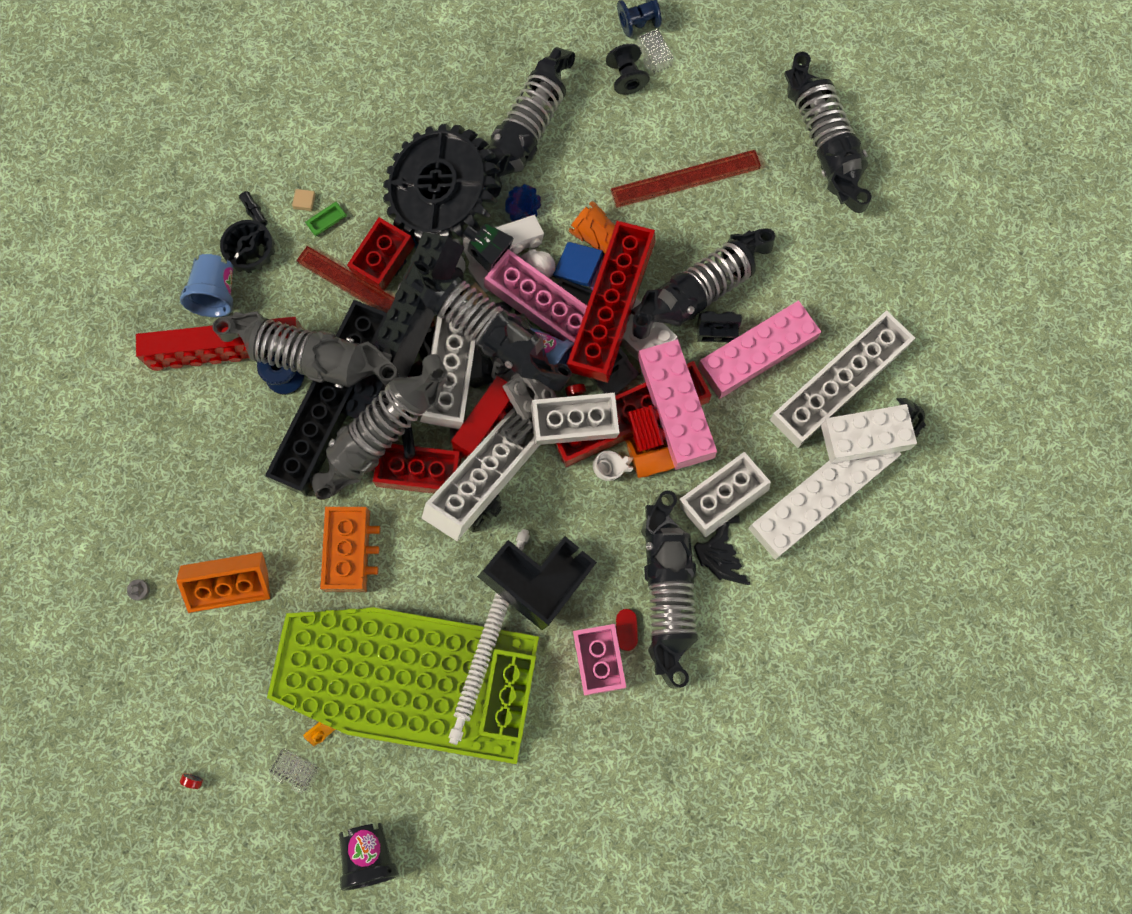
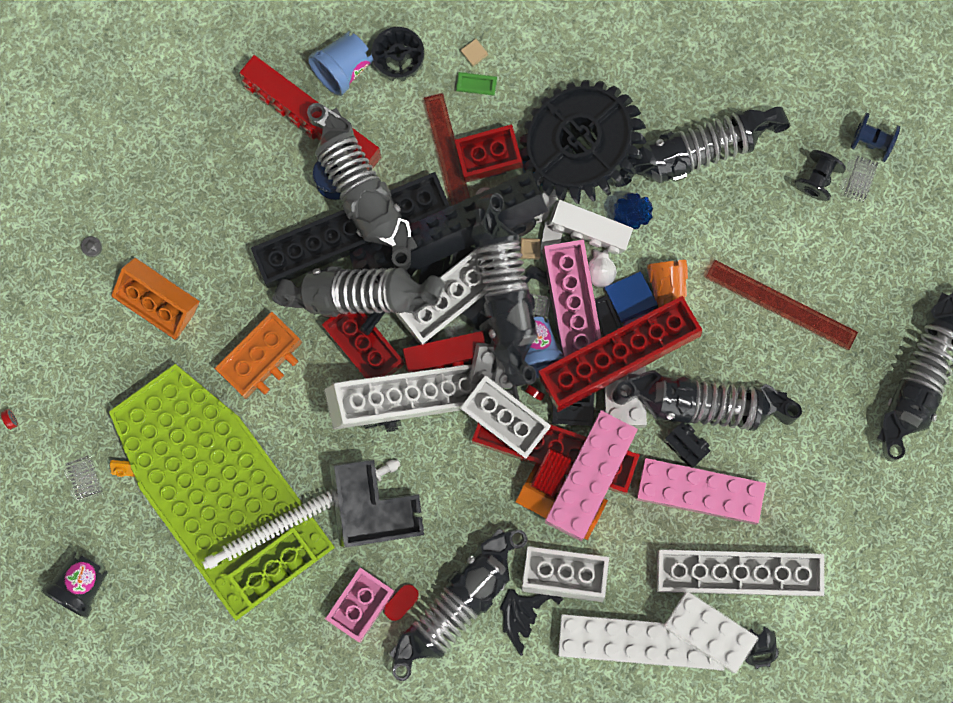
camera: 45 degrees right, 5 degrees up
(252, 208) = (429, 25): black pin -> none
(487, 245) = (570, 223): black torso -> none
(511, 424) = (447, 385): dark grey tile -> none
(610, 465) = (504, 474): white piece -> none

